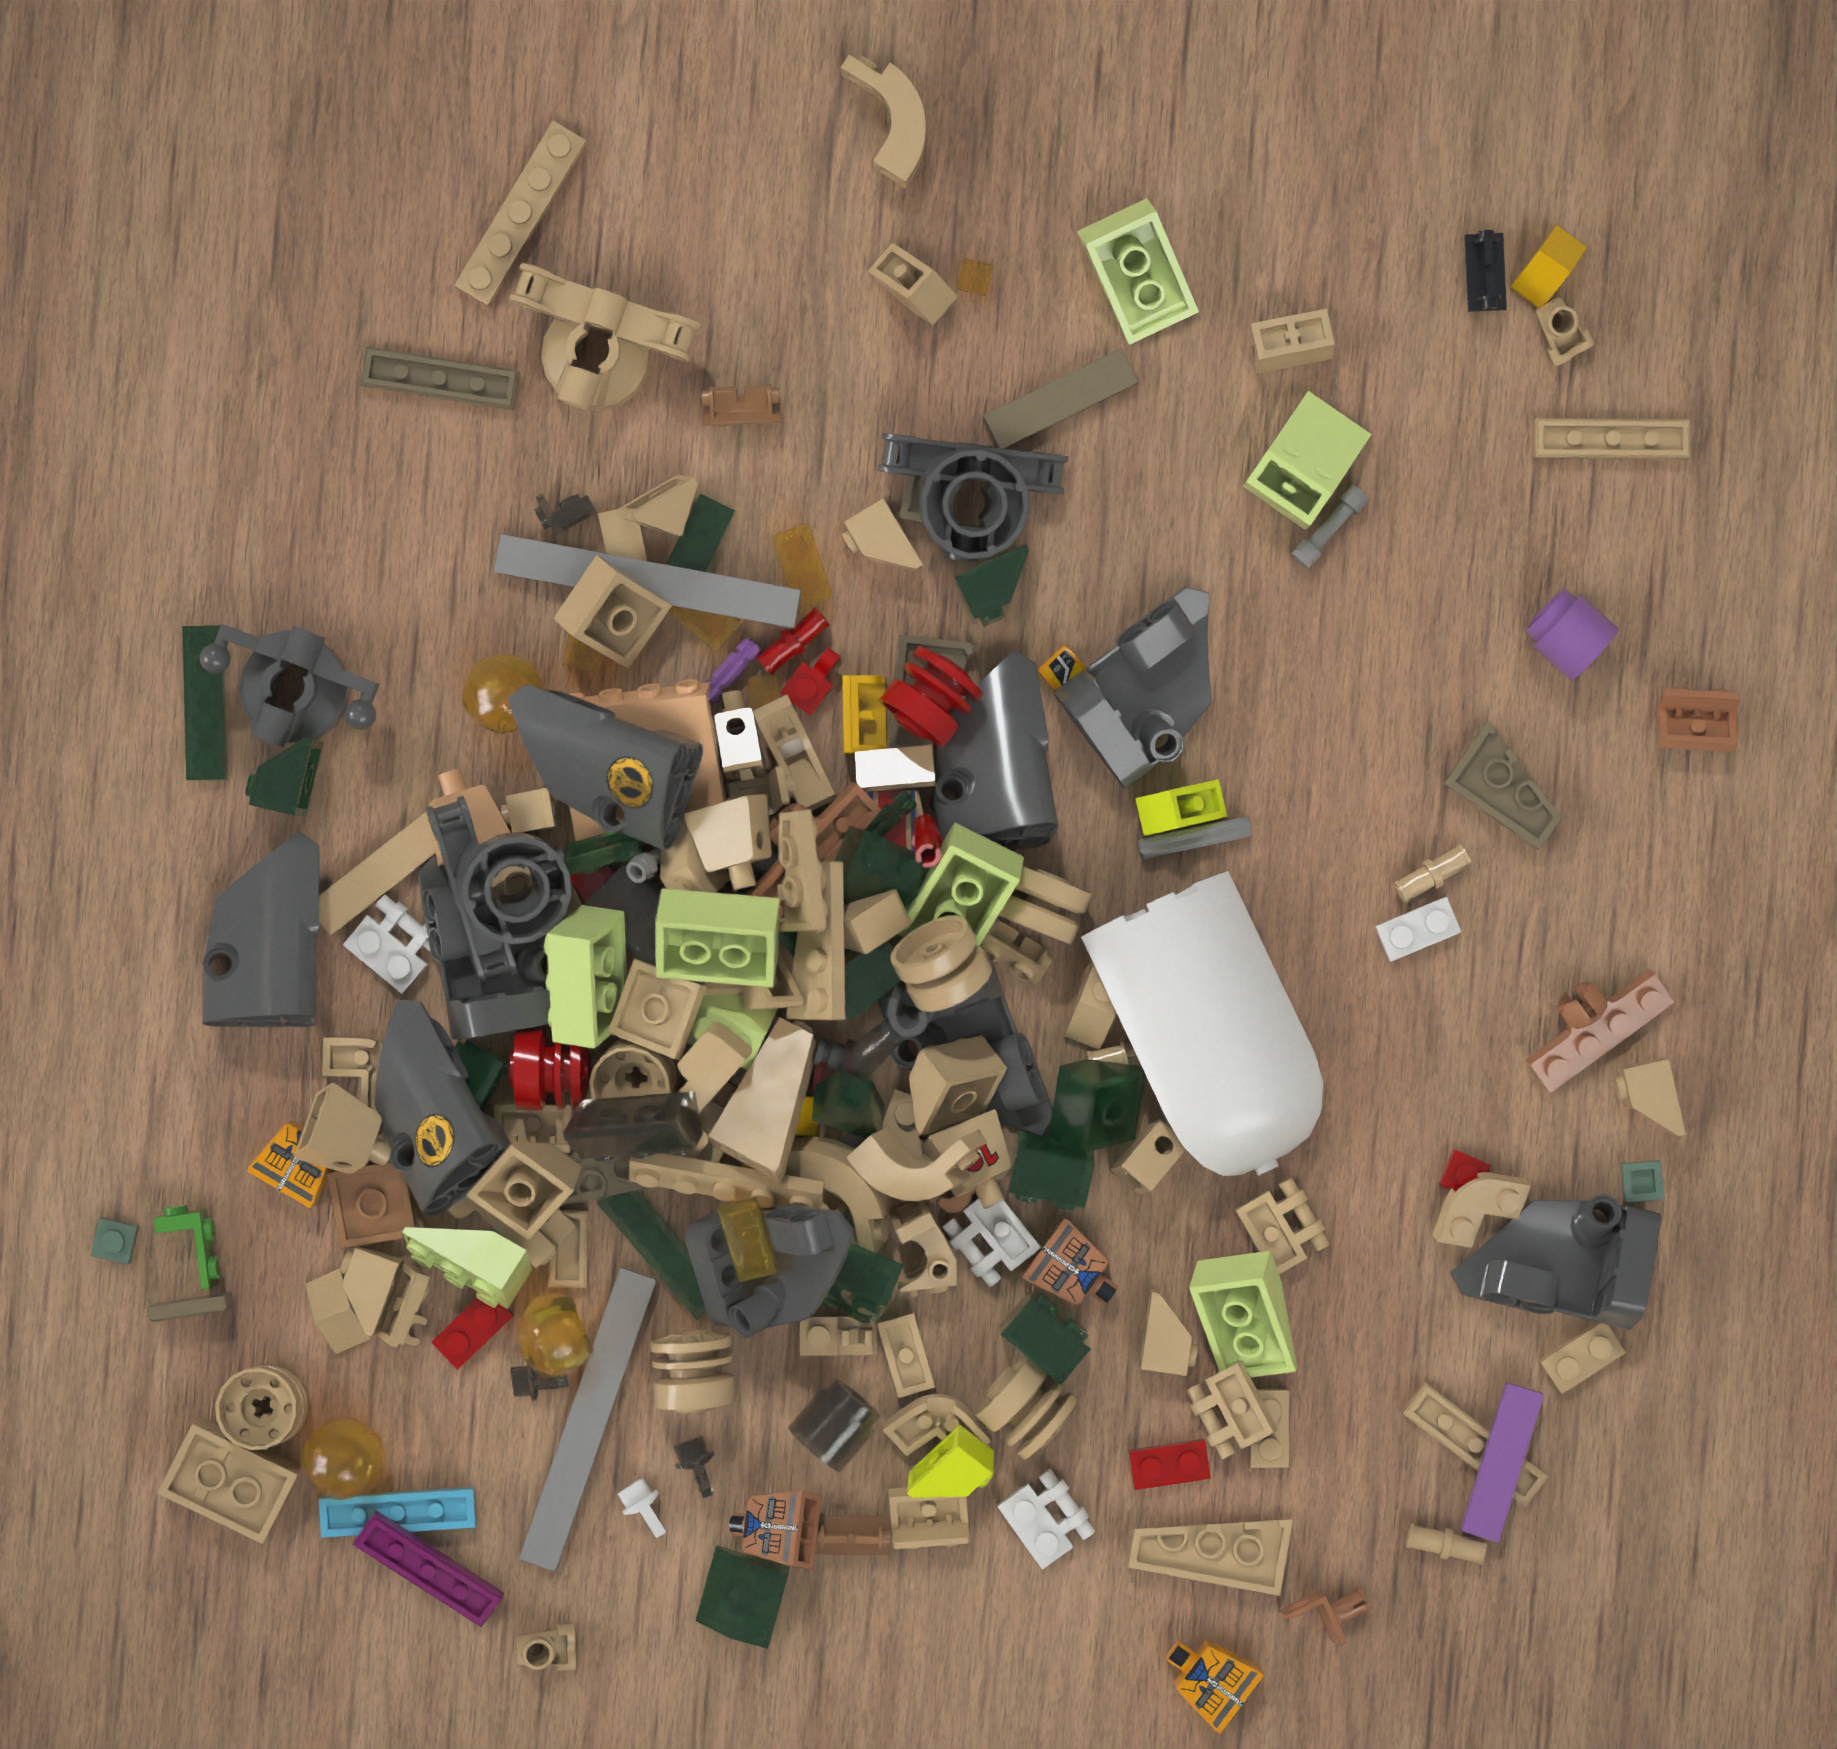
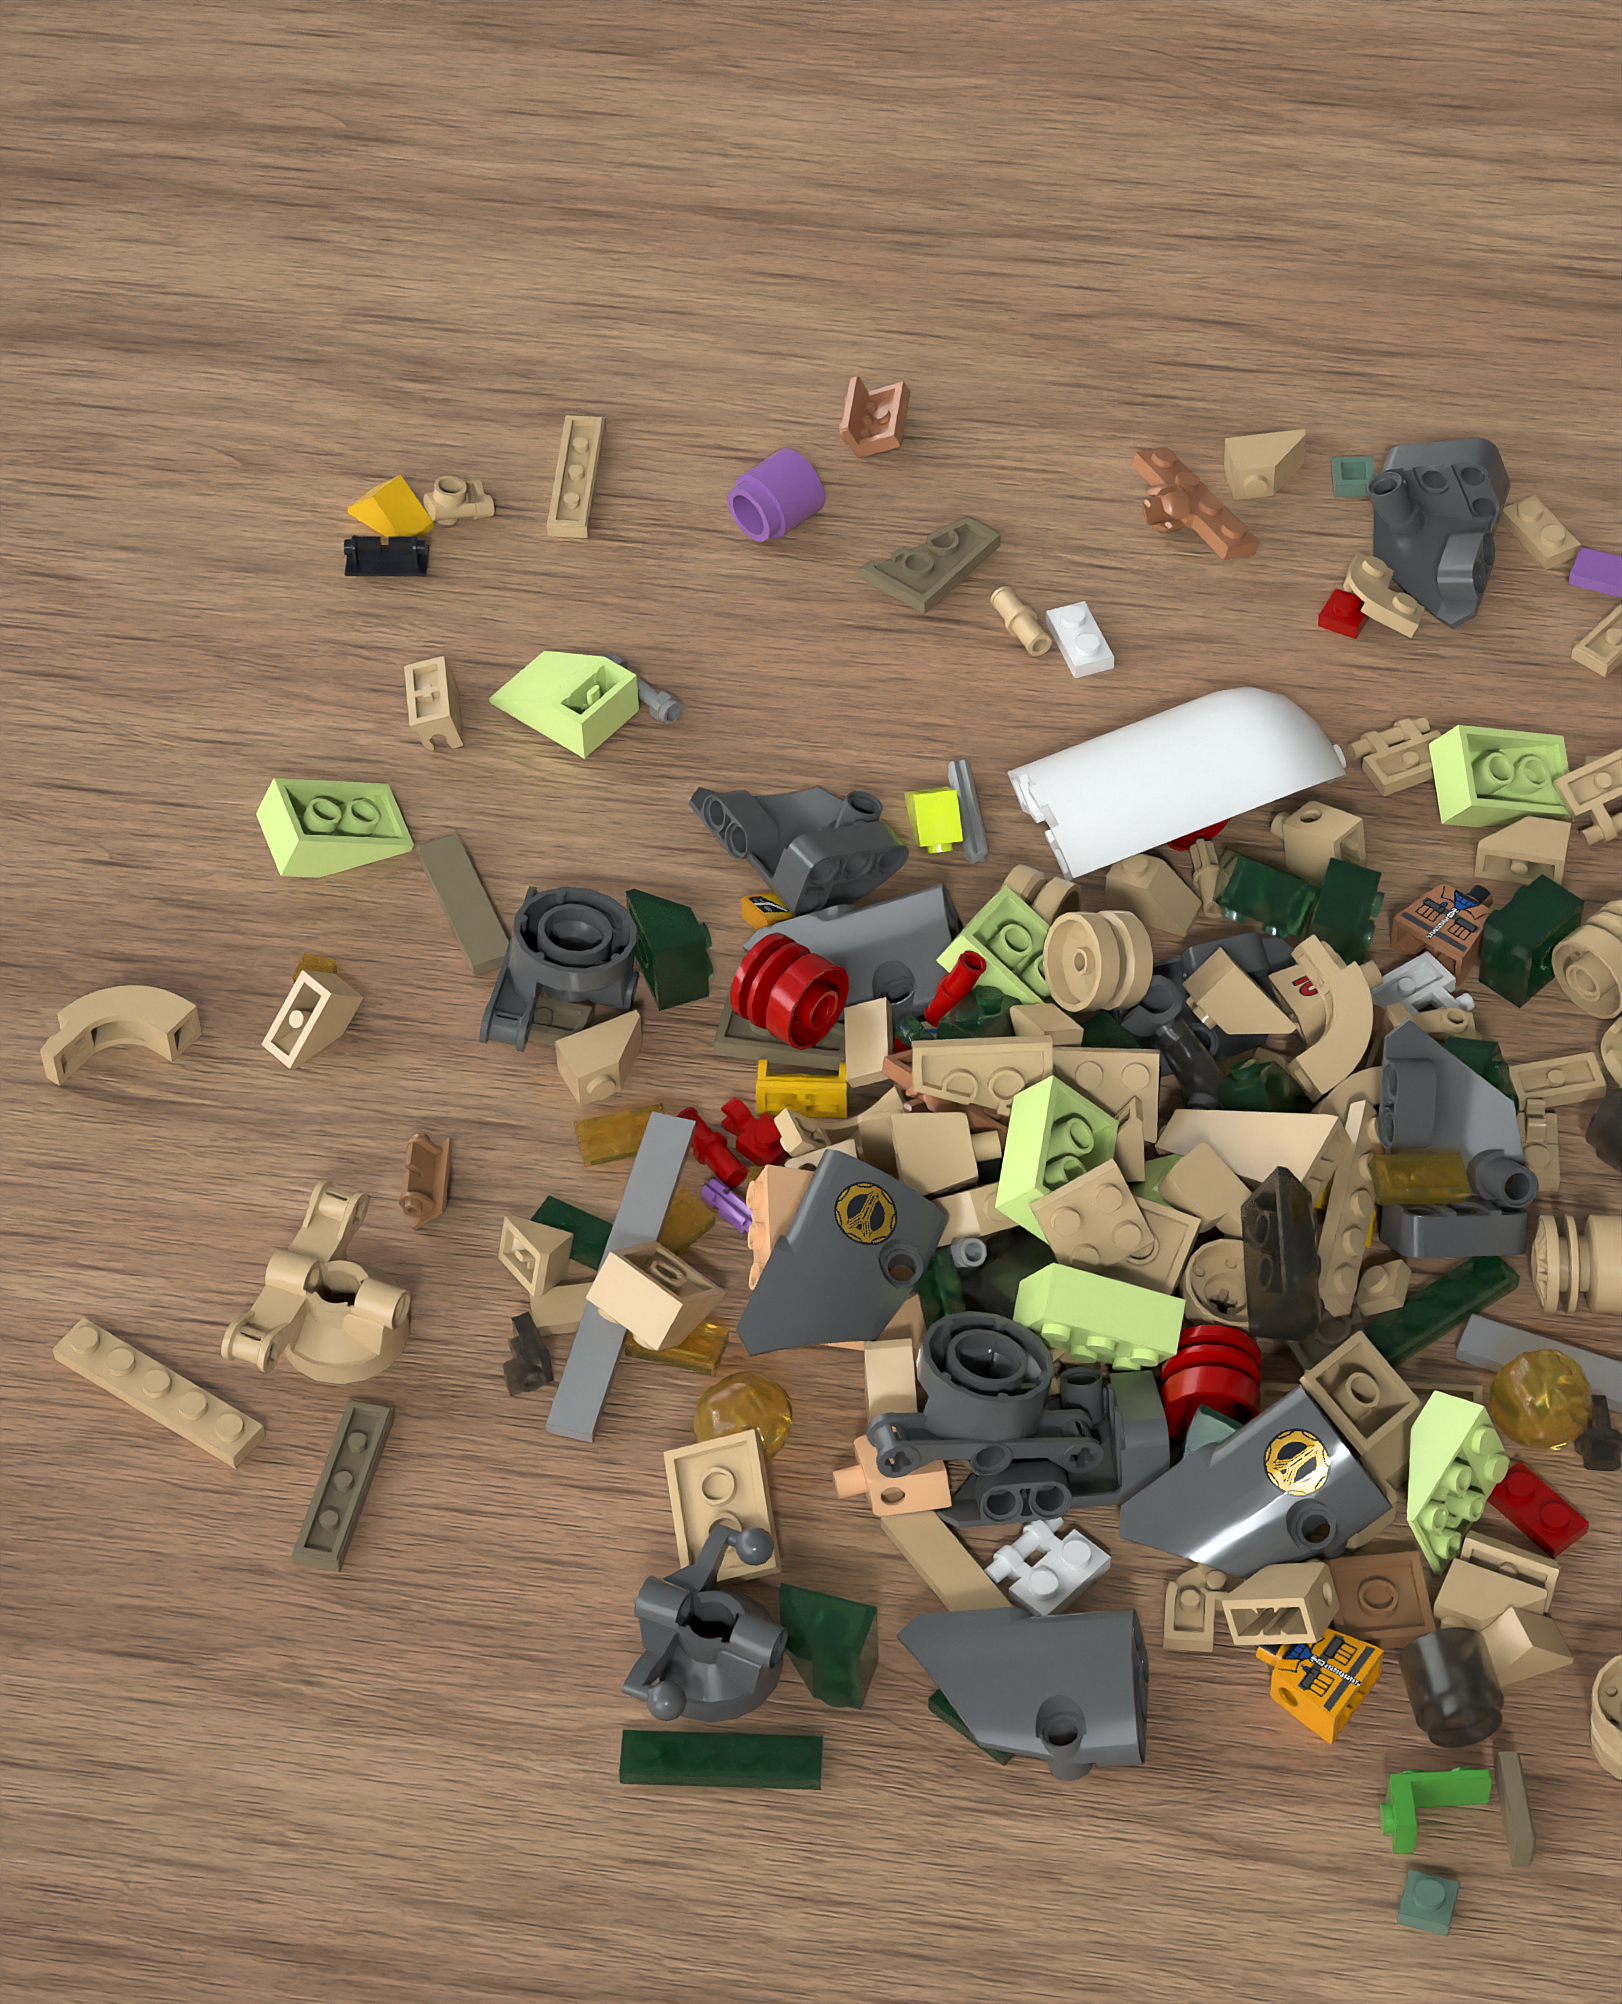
camera: 85 degrees left, 40 degrees down
(283, 1261) = (1452, 1686): none -> clear smoke piece
(416, 682) = (723, 1485): none -> tan plate
(648, 969) = (1092, 1220): none -> tan plate
(675, 1209) = (1383, 1287): none -> tan plate

